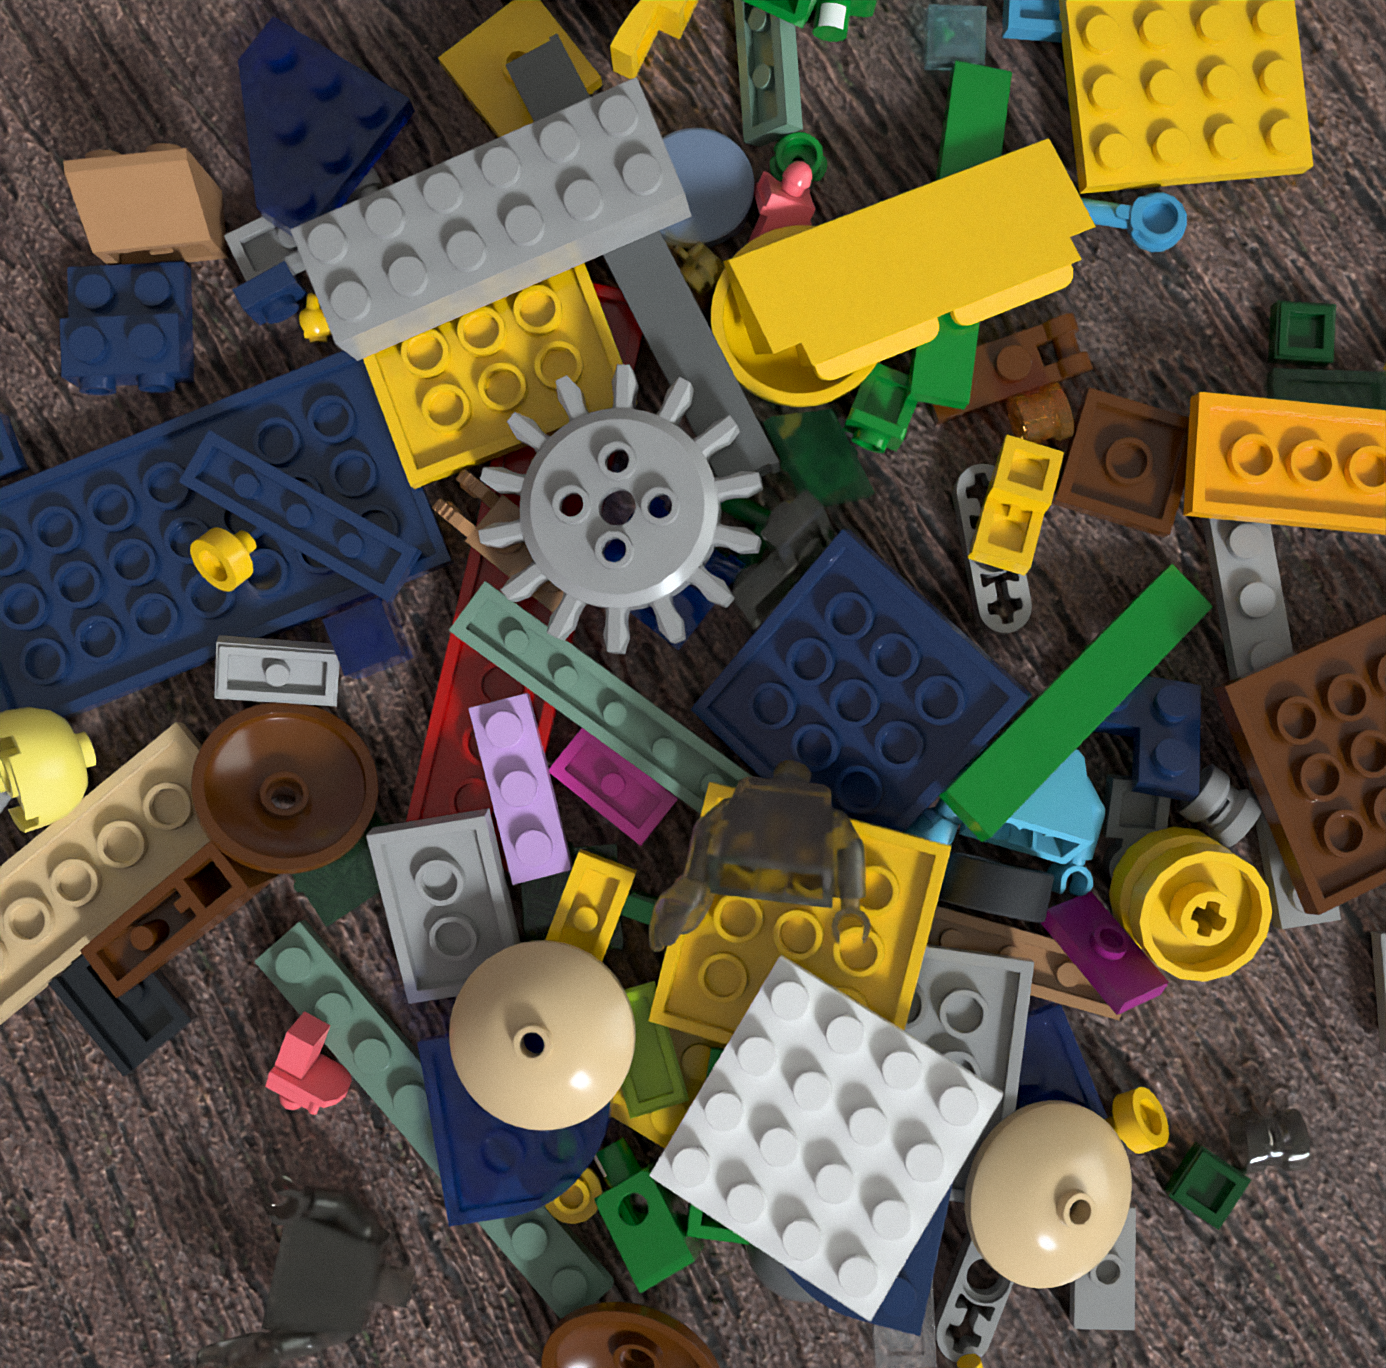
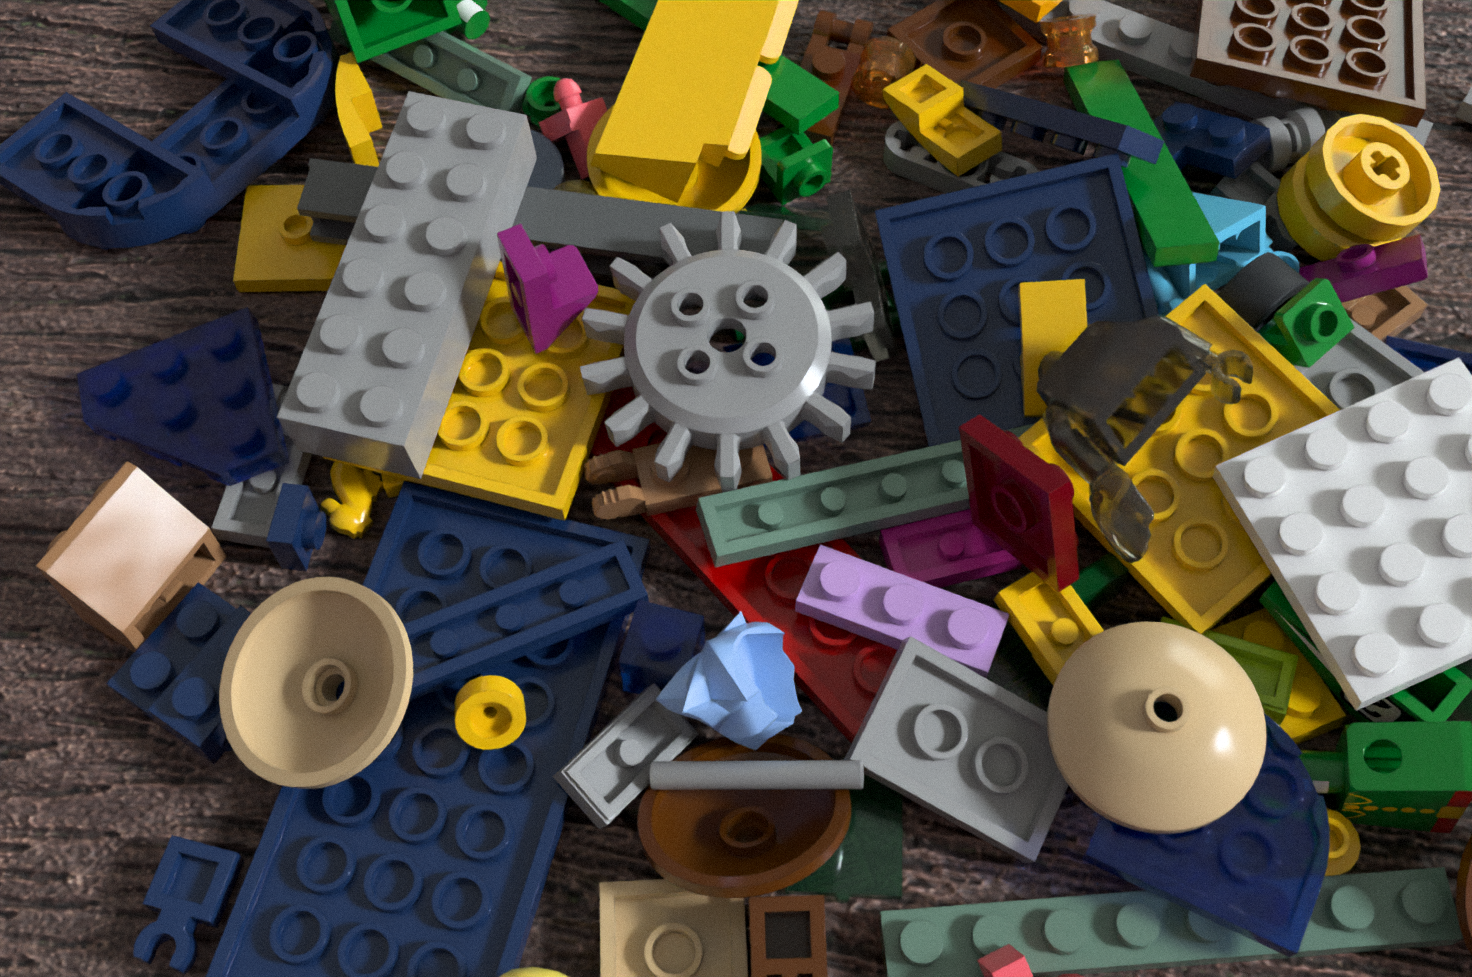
camera: 60 degrees left, 25 degrees down
(142, 426) = (285, 679): none -> tan dish
(314, 777) = (756, 775): none -> light grey bar
(362, 716) = (738, 684): none -> light blue hair
(555, 331) = (543, 286): none -> magenta slope
(646, 827) = (1021, 501): none -> dark red plate
(829, 746) = (1049, 321): none -> yellow slope
(973, 946) = (1308, 324): none -> green bracket
(1061, 613) = (1069, 128): none -> dark blue plate
(1194, 553) = (1069, 40): none -> clear orange wheel

